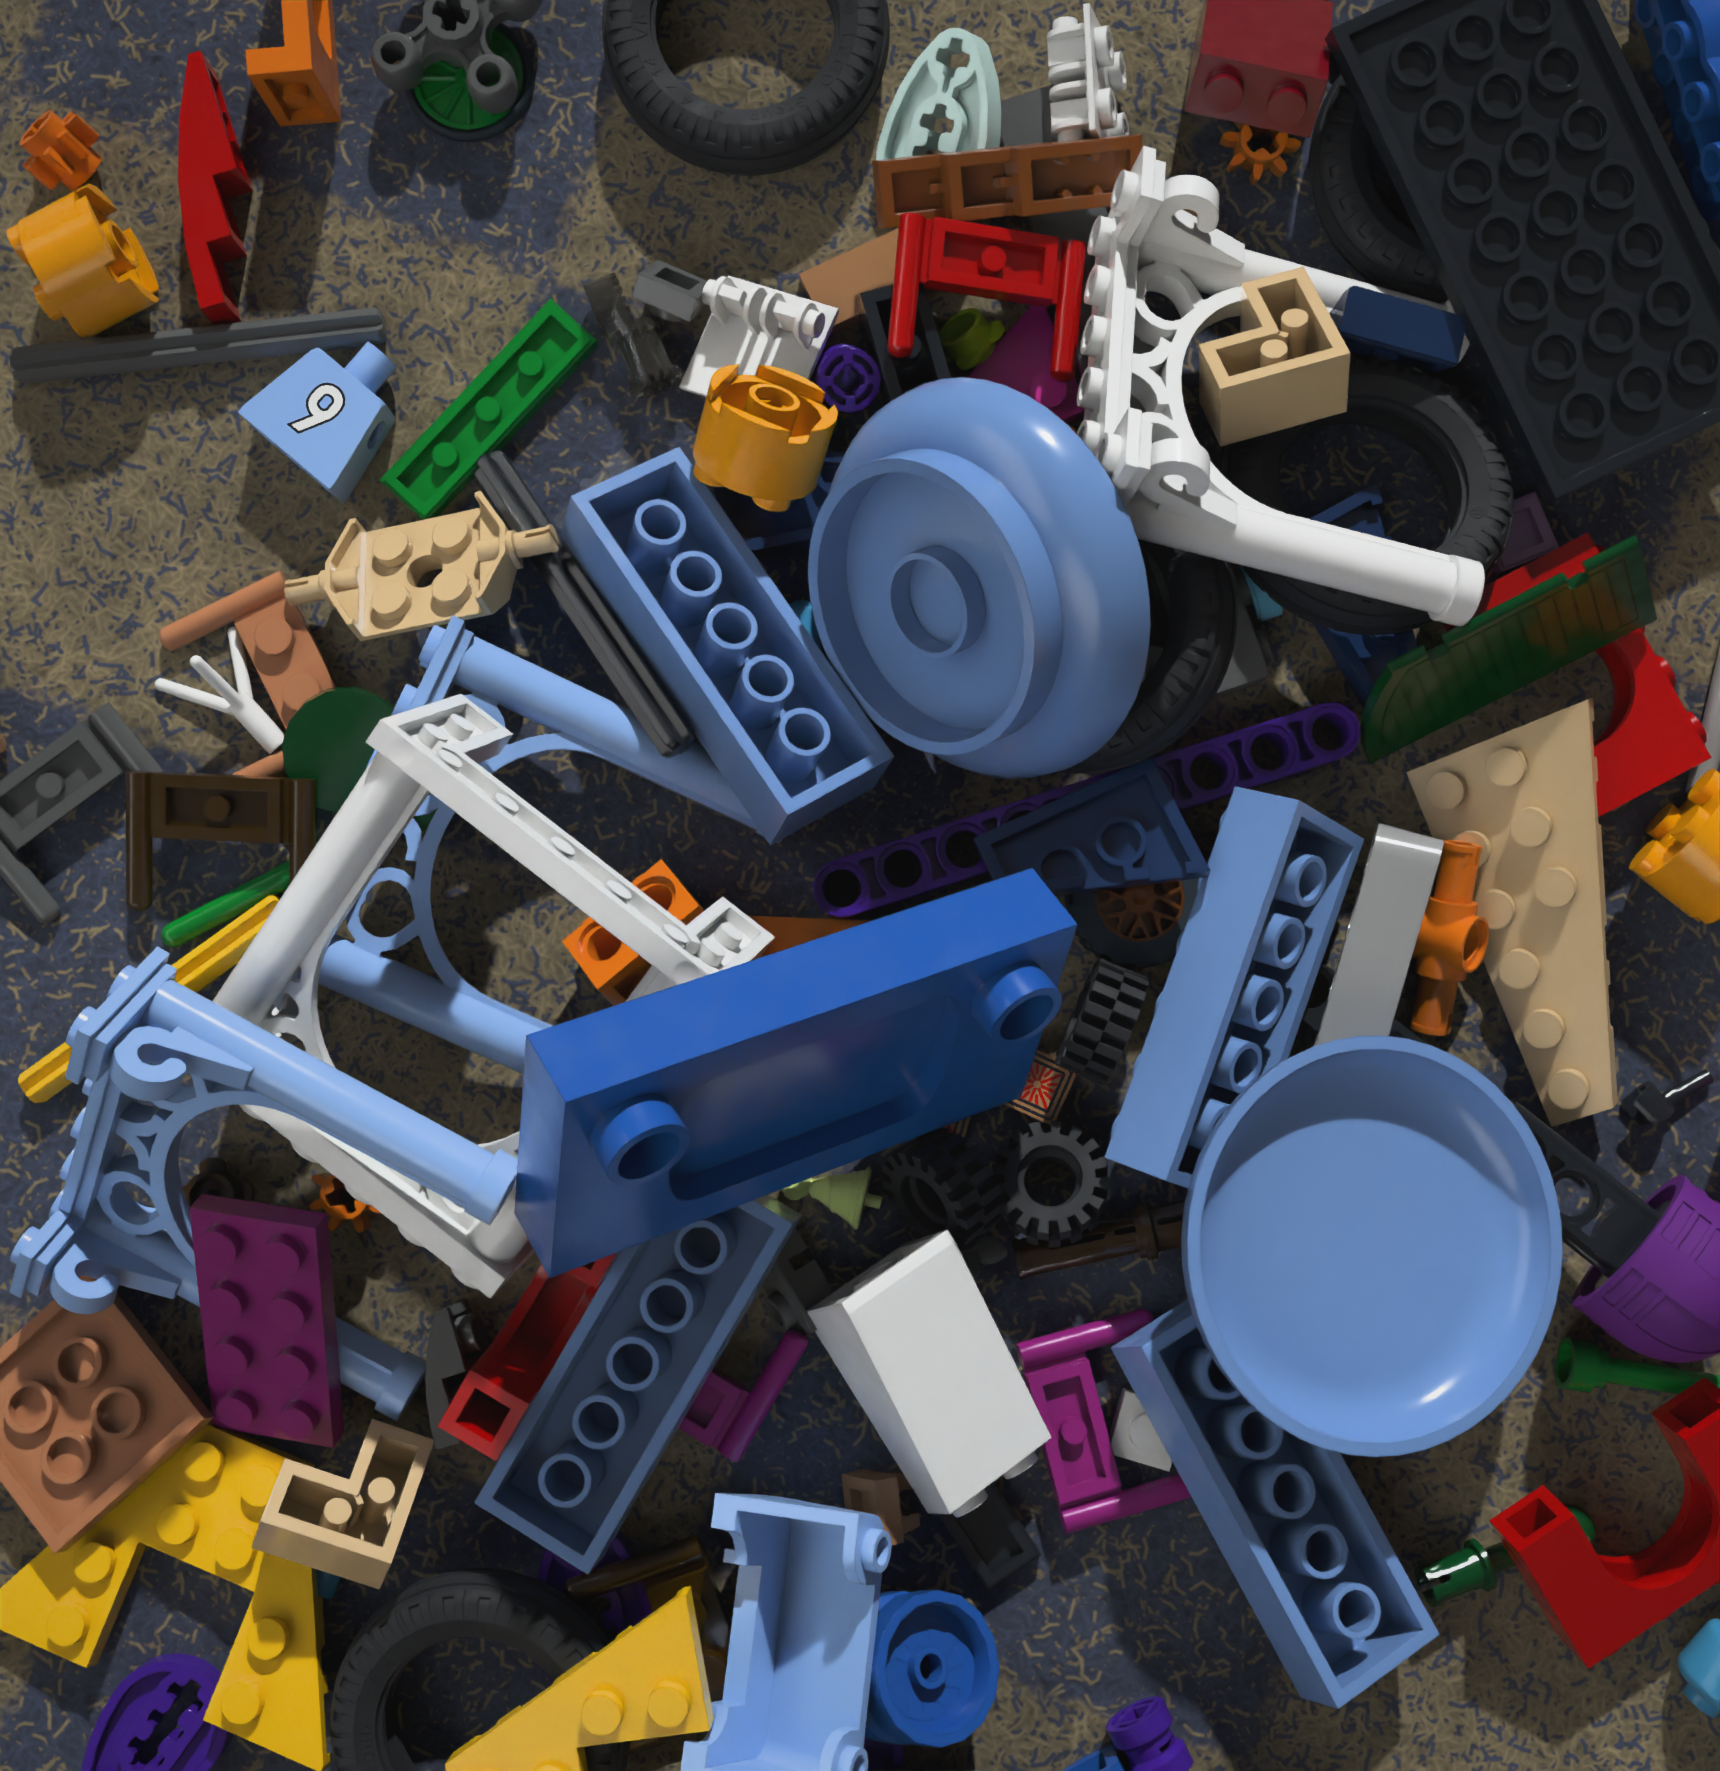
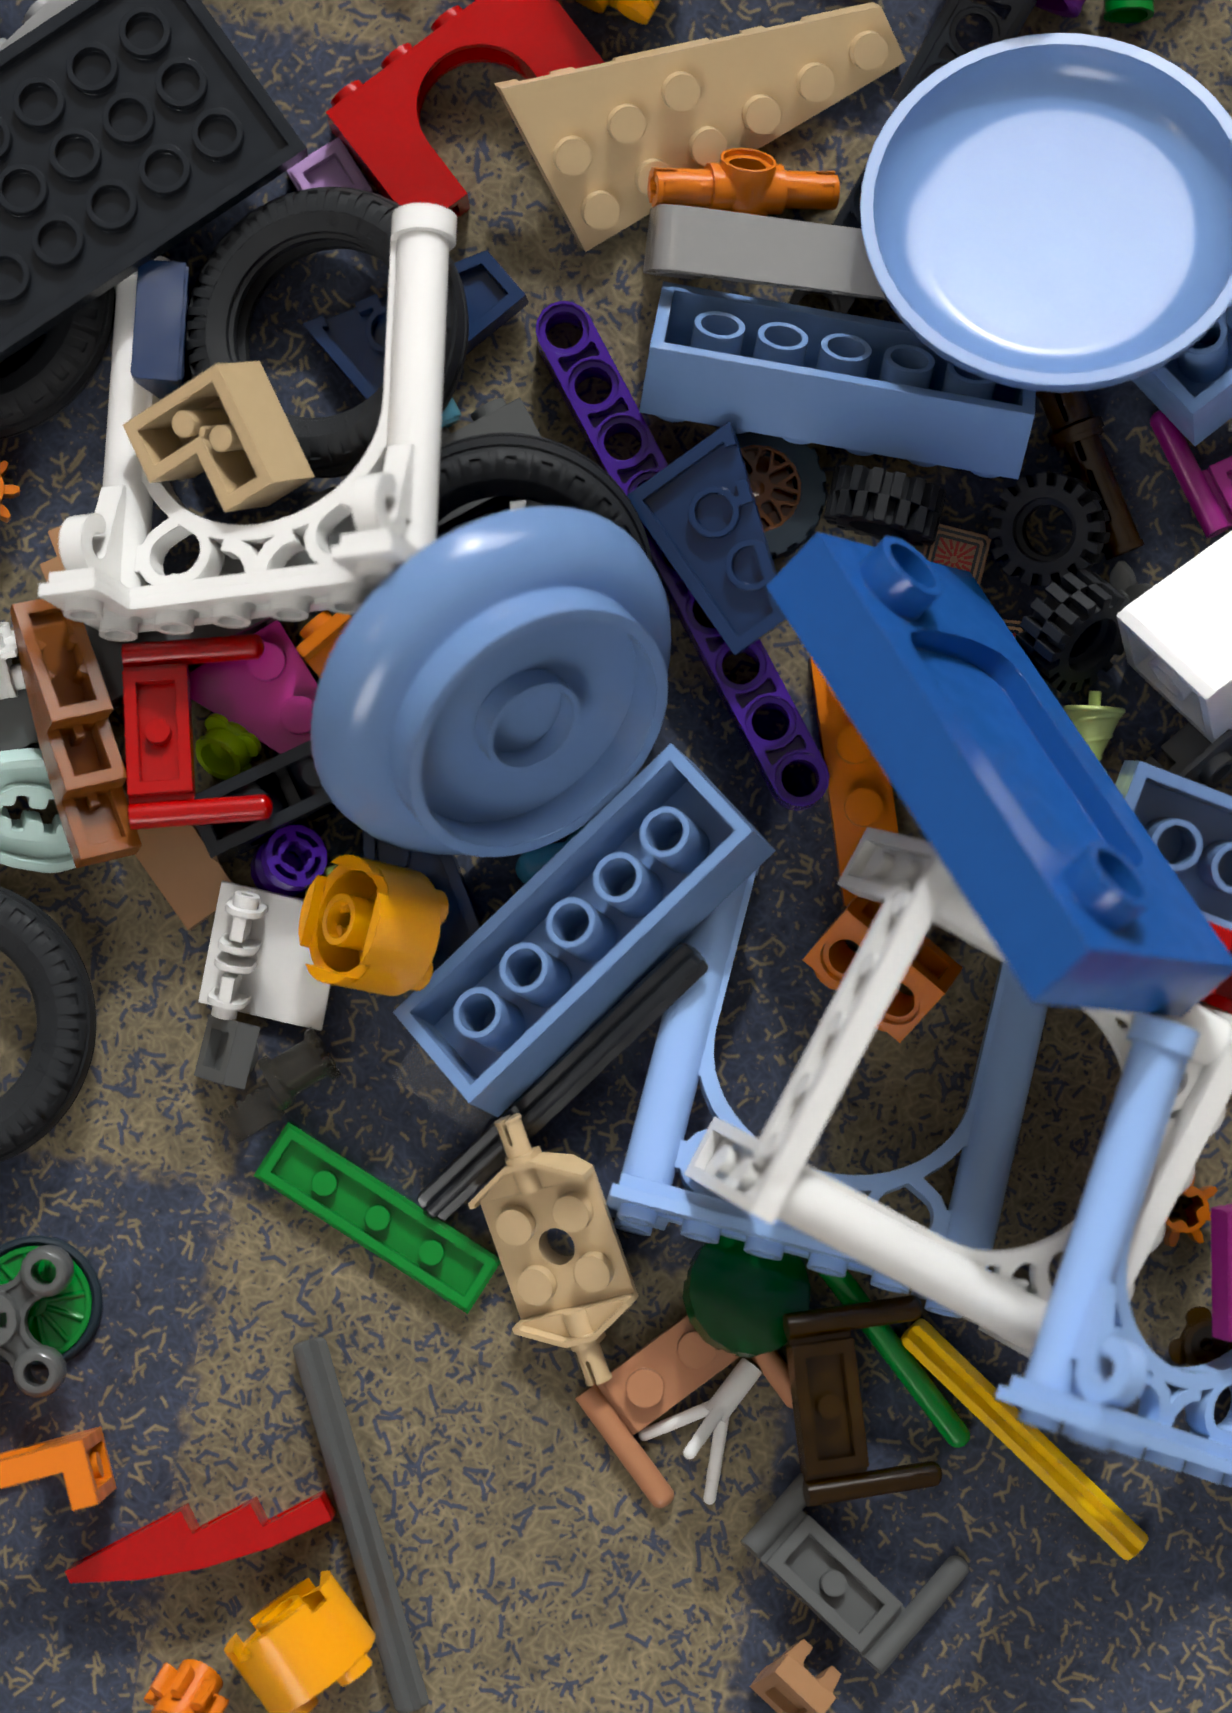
camera: 100 degrees left, 0 degrees up
(327, 415) = (413, 1376): light blue torso -> none
(1508, 648) = (462, 172): dark green piece -> none

